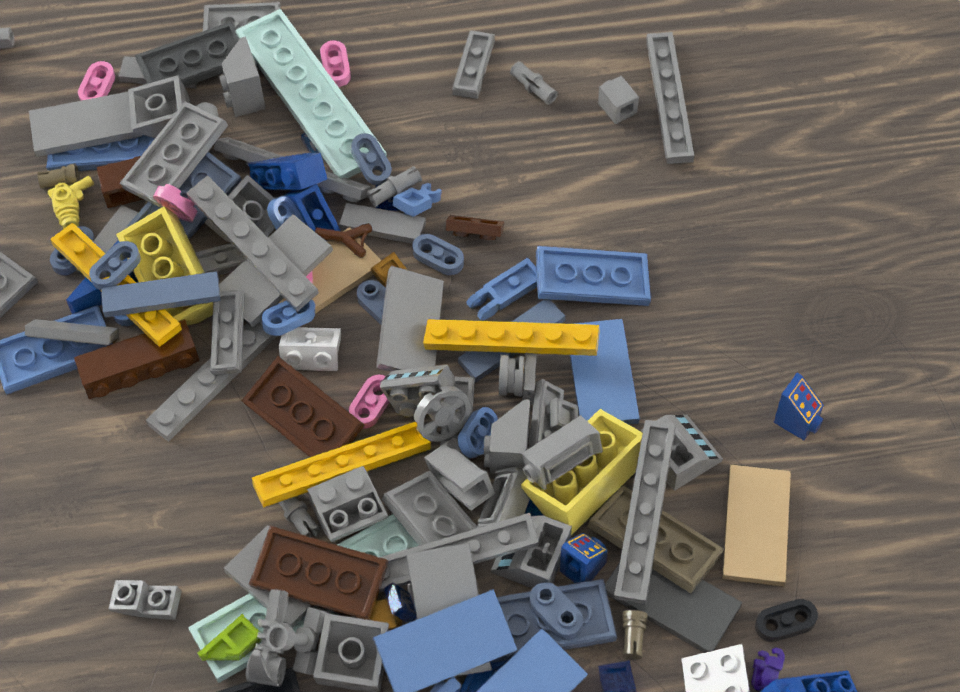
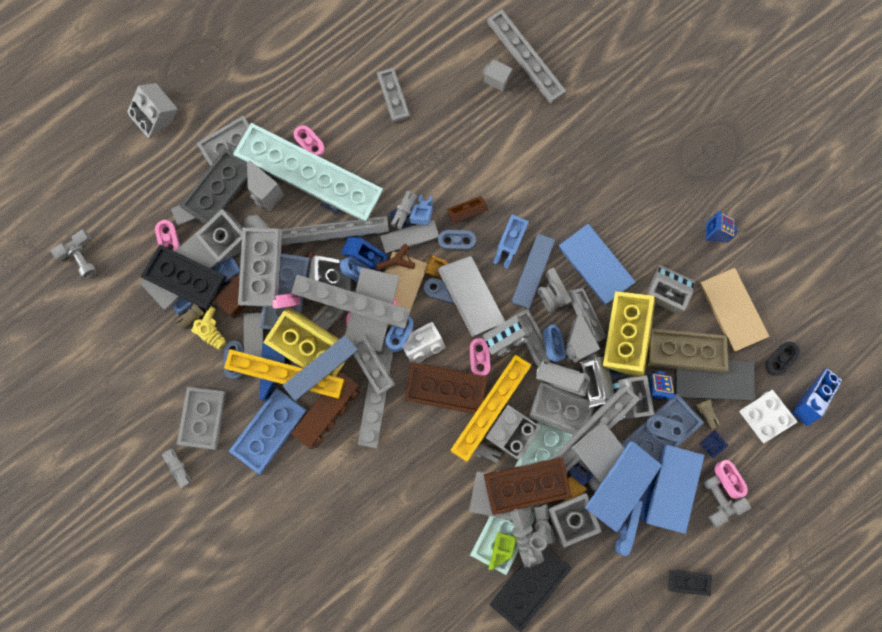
camera: 30 degrees left, 20 degrees up
(71, 332) = (276, 417): light grey tile -> none
(81, 127) = (183, 277): none -> black tile
(113, 266) = (279, 366): sand blue plate -> none
(146, 601) = (432, 551): light grey slope -> none
(289, 171) = (338, 238): blue slope -> none
(372, 160) = (379, 199): sand blue plate -> none
(442, 413) = (534, 345): light grey piece -> none
(512, 337) = (539, 274): yellow plate -> none
(544, 91) = (438, 89): light grey pin -> none
(561, 452) = (617, 335): light grey window -> none
(562, 413) = (594, 305): light grey tile -> none
(592, 276) = (555, 205): medium blue tile -> none
(645, 512) = (681, 343): light grey plate -> none
(768, 669) = (795, 399): dark purple piece -> none

